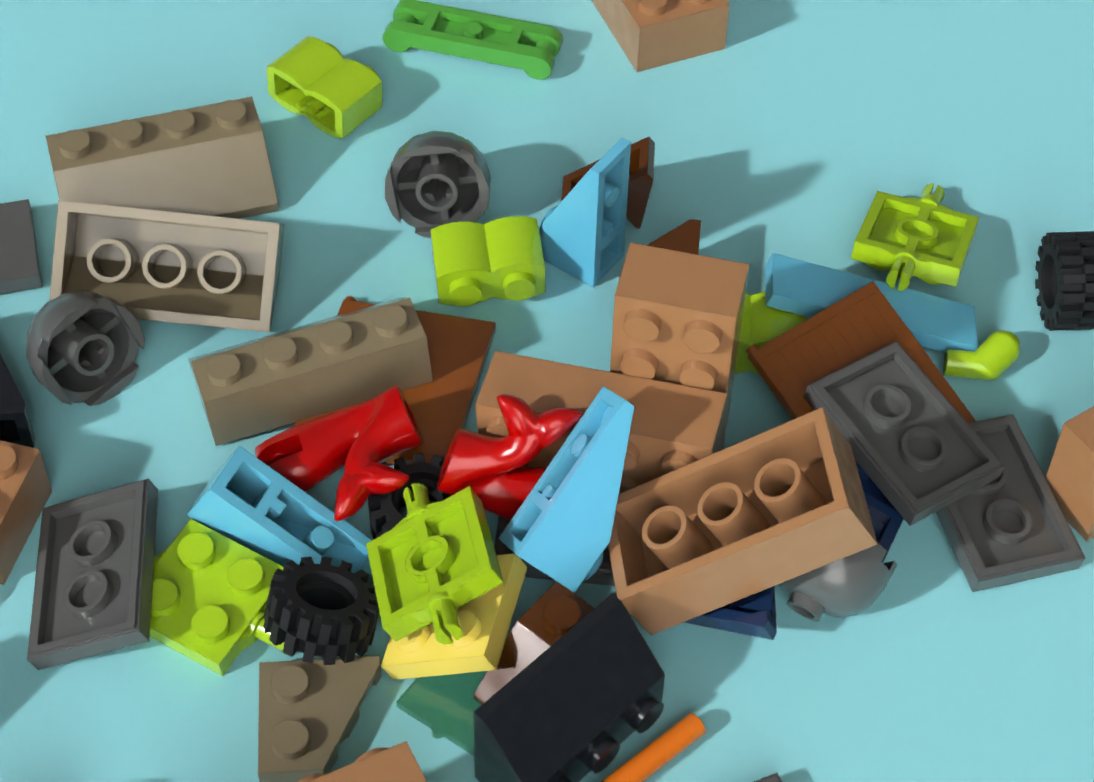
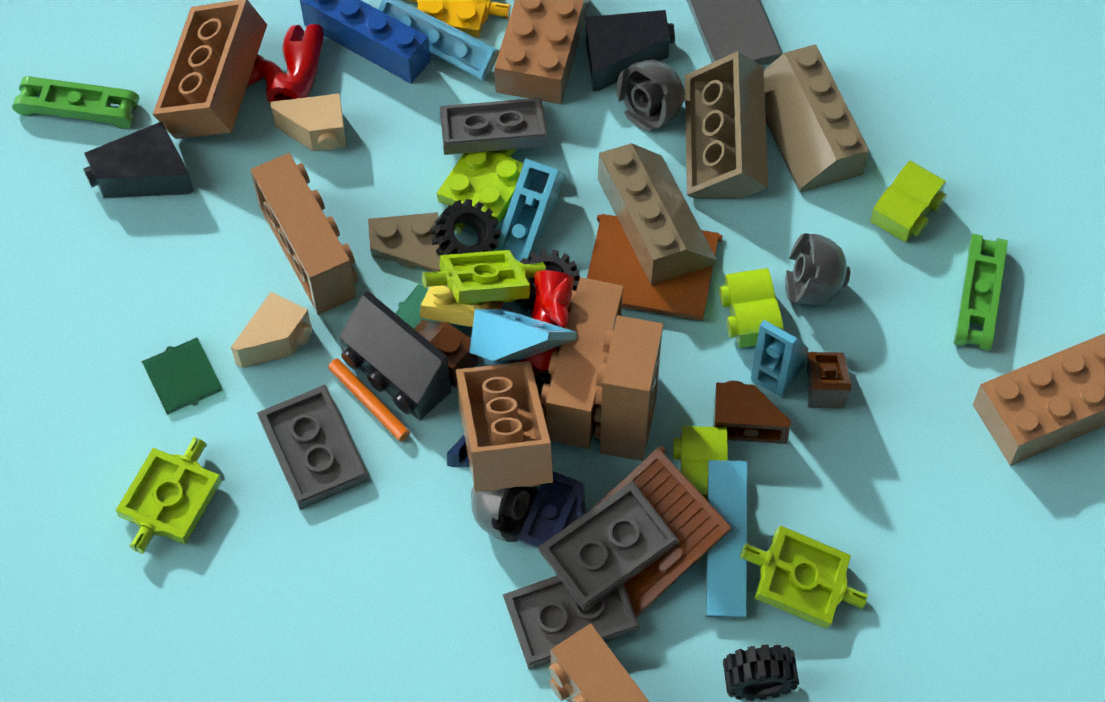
camera: 90 degrees right, 10 degrees up
(353, 438) = (584, 237): red piece -> none
(987, 361) = (698, 623): lime arm -> none

